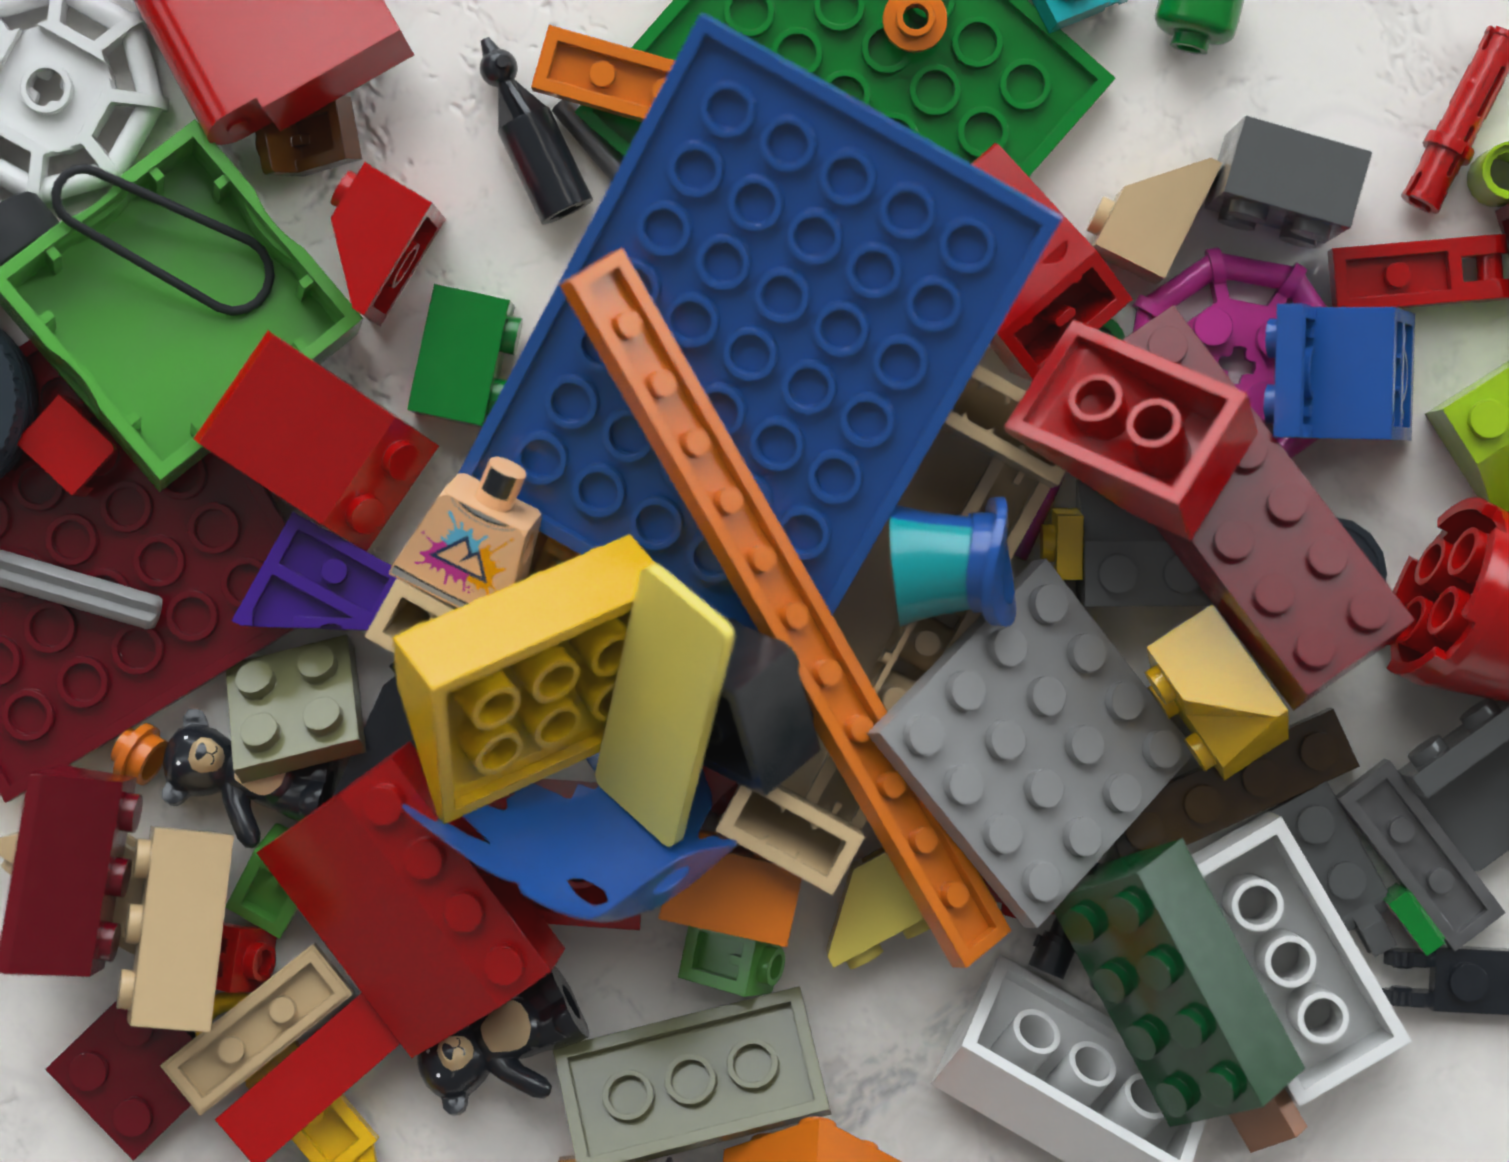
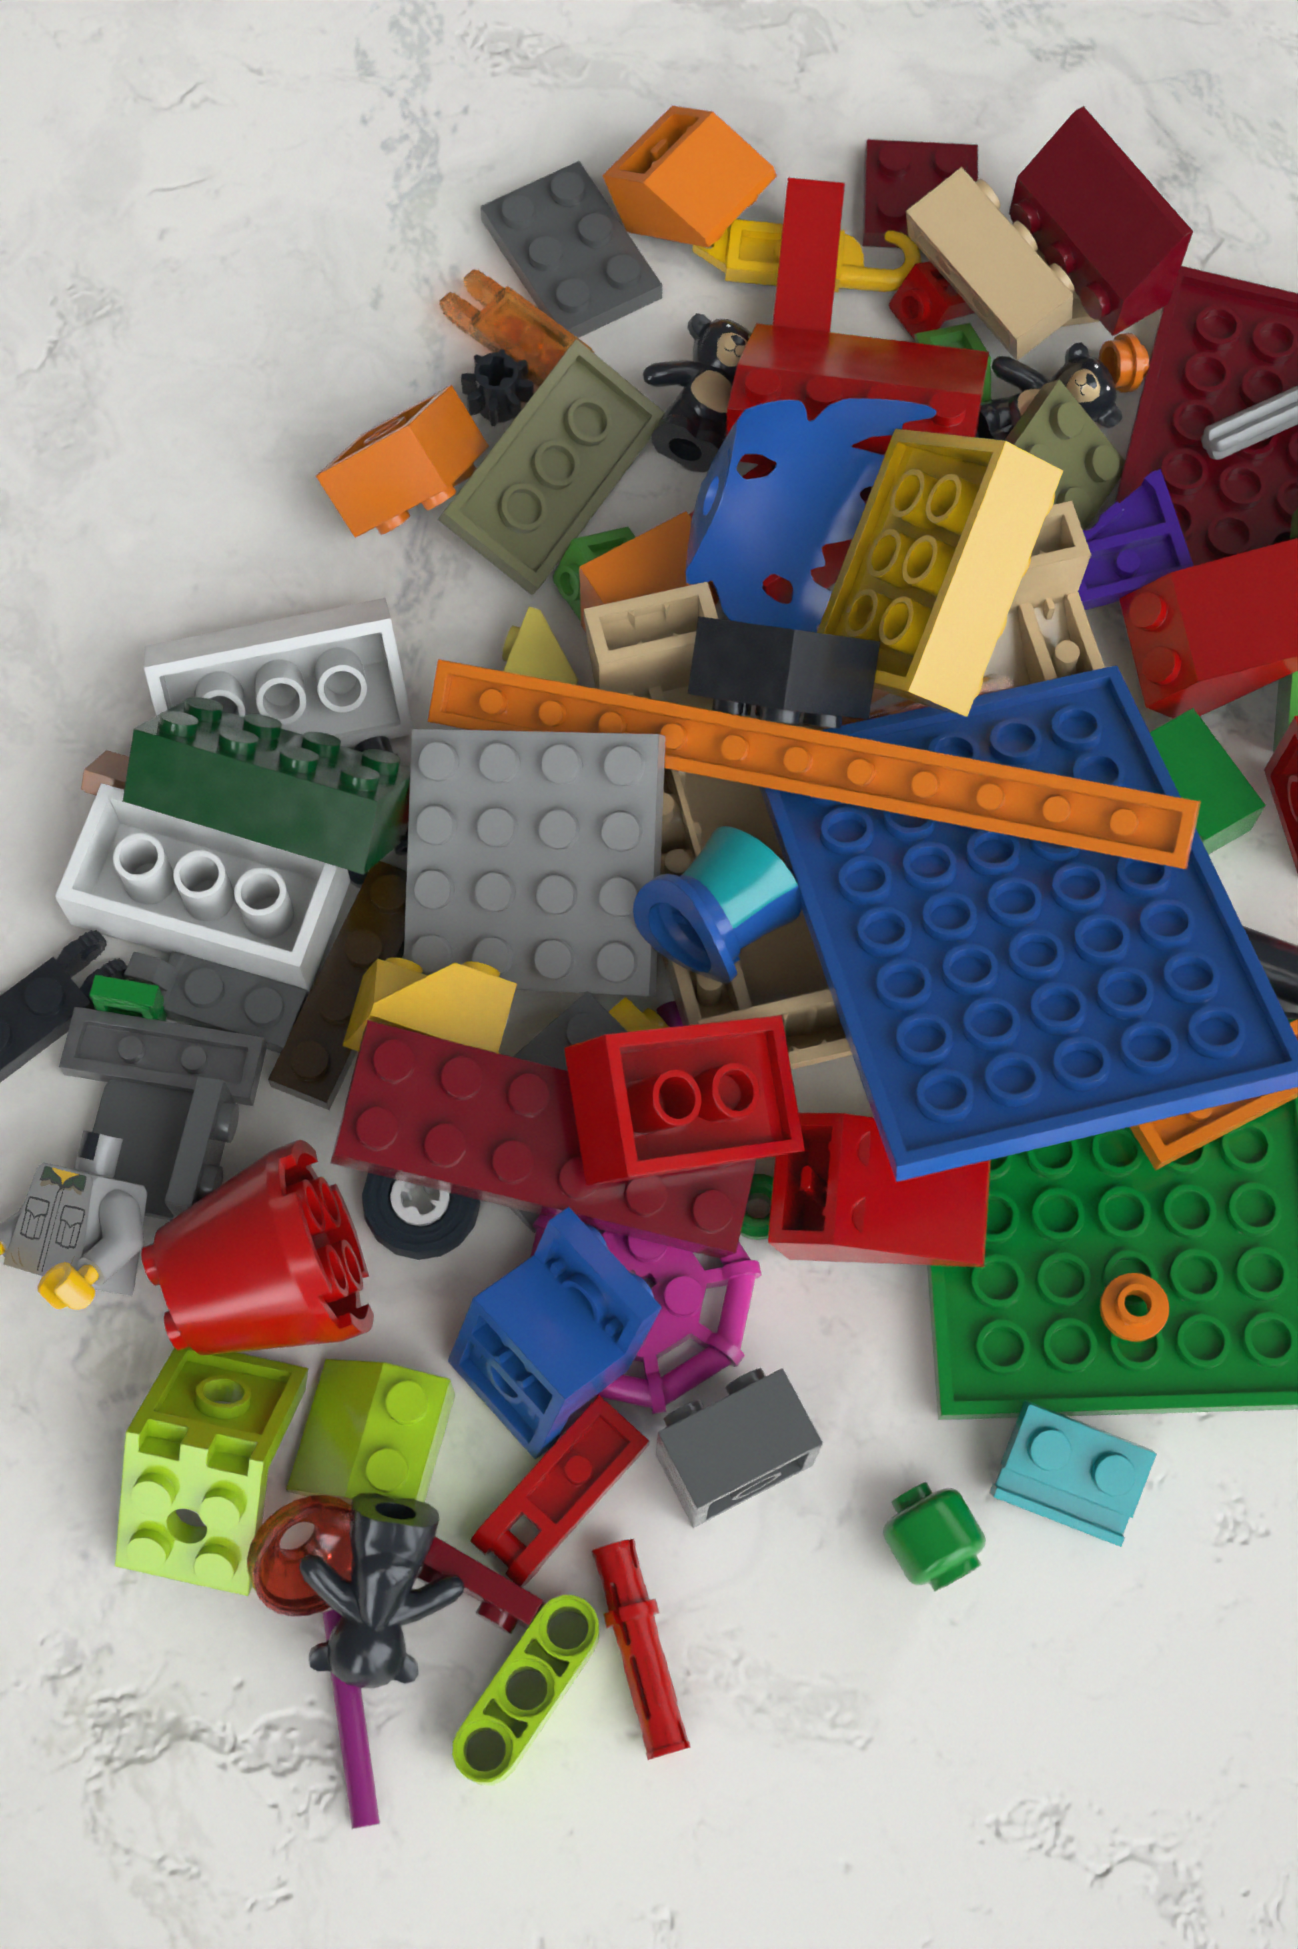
camera: 135 degrees right, 20 degrees down
(257, 1029) = (873, 260): tan tile -> none
(473, 537) = (1064, 632): light nougat torso -> none
(663, 704) = (832, 615): light yellow piece -> none
(1151, 219) = (808, 1328): tan slope -> none

